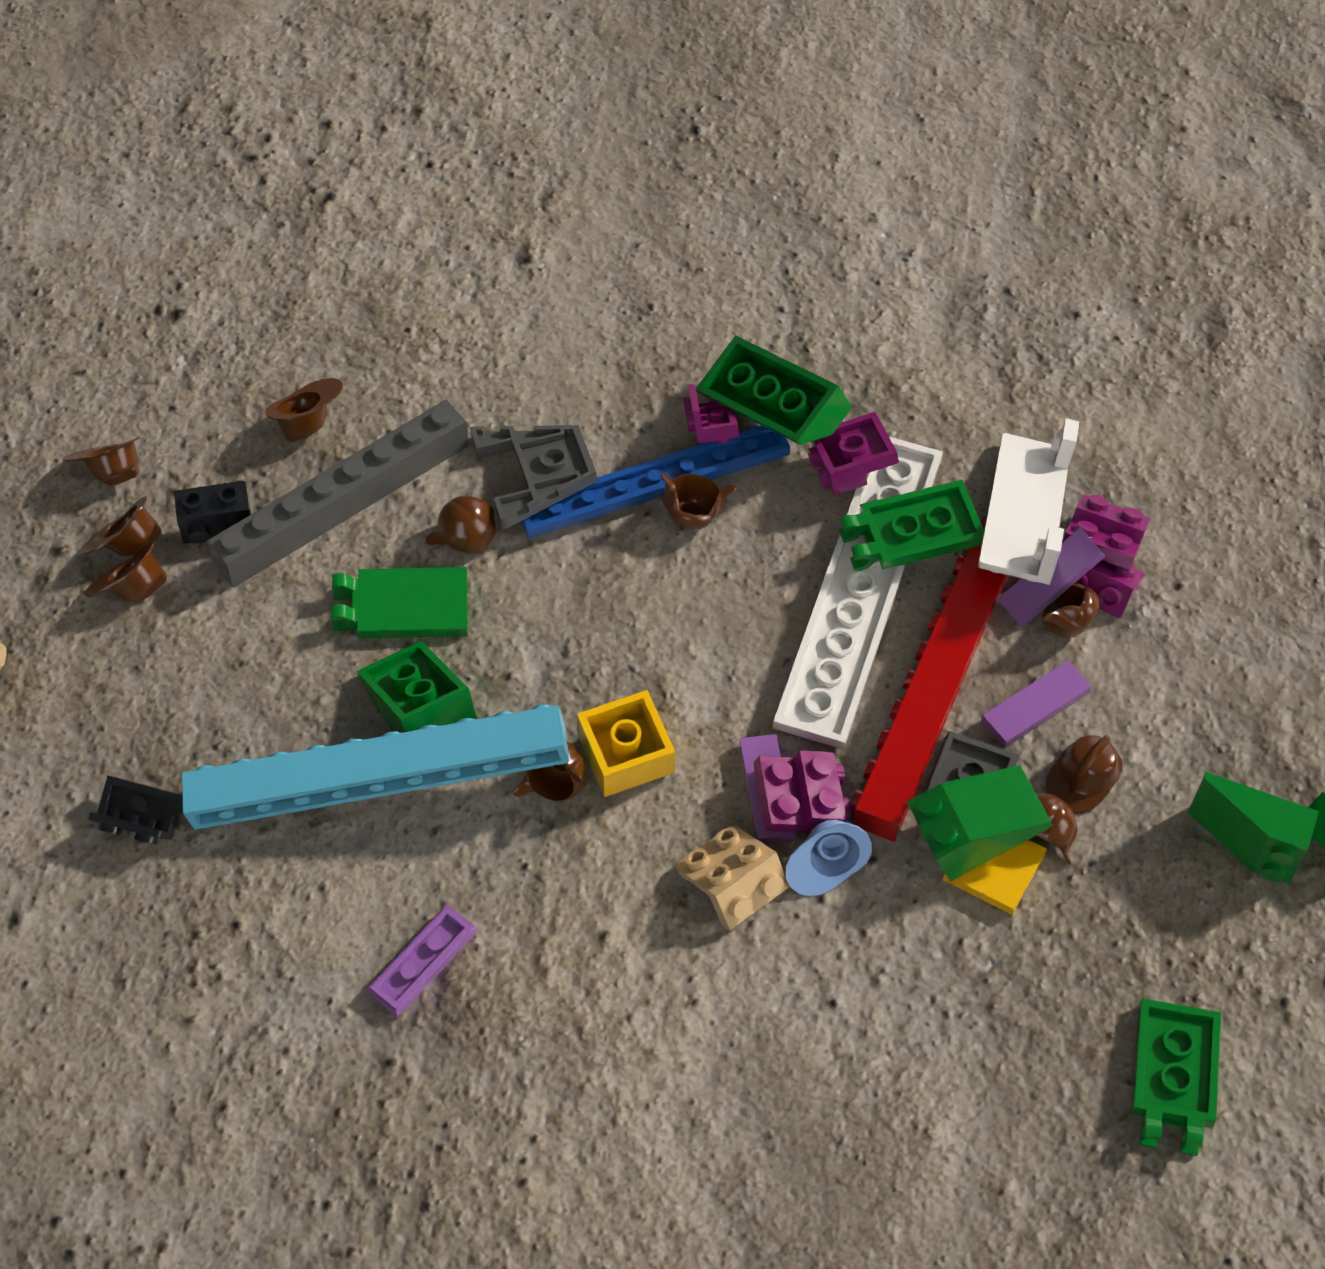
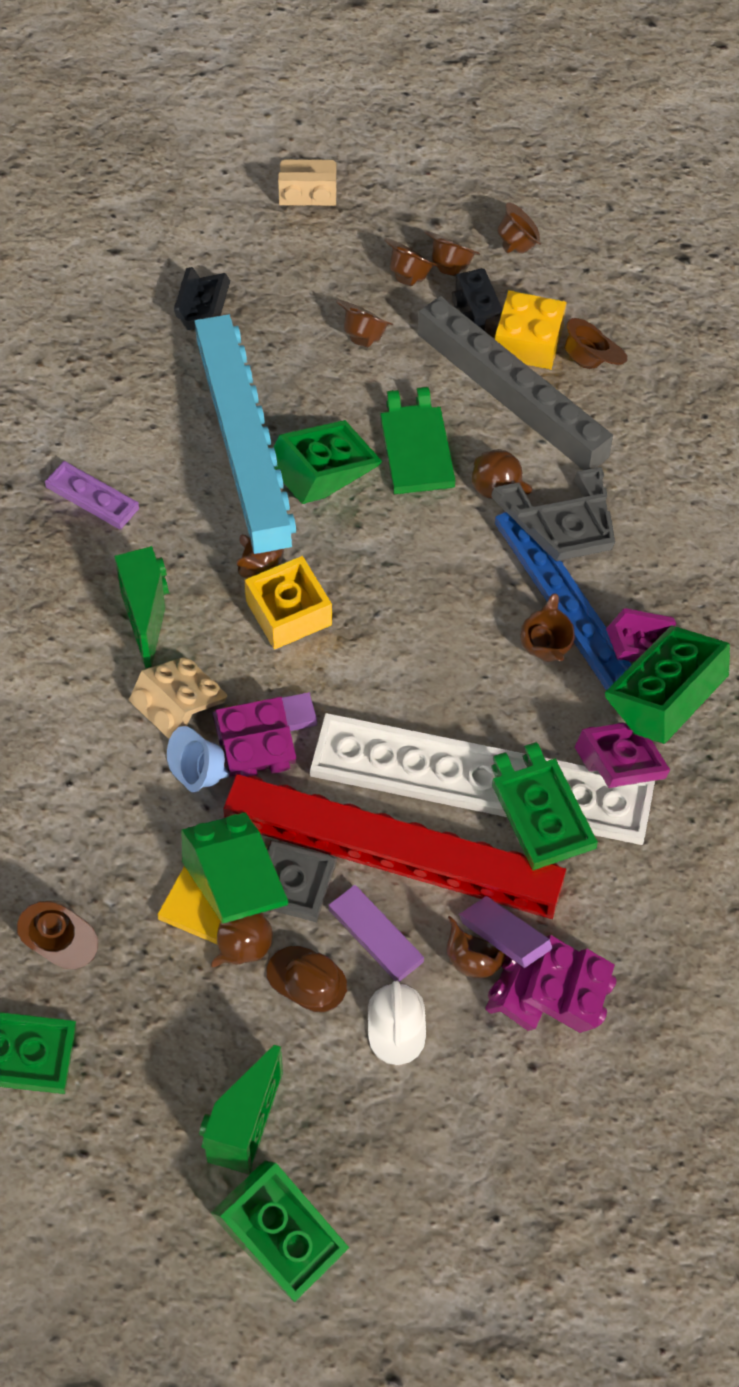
camera: 85 degrees right, 0 degrees up
(217, 636) = (362, 324): none -> reddish brown piece
(267, 460) = (531, 328): none -> yellow brick
(616, 893) = (143, 591): none -> green slope
(1026, 506) = (582, 904): white bracket -> none
(1039, 1009) = (58, 934): none -> reddish brown piece
(1133, 695) = (396, 1023): none -> white piece

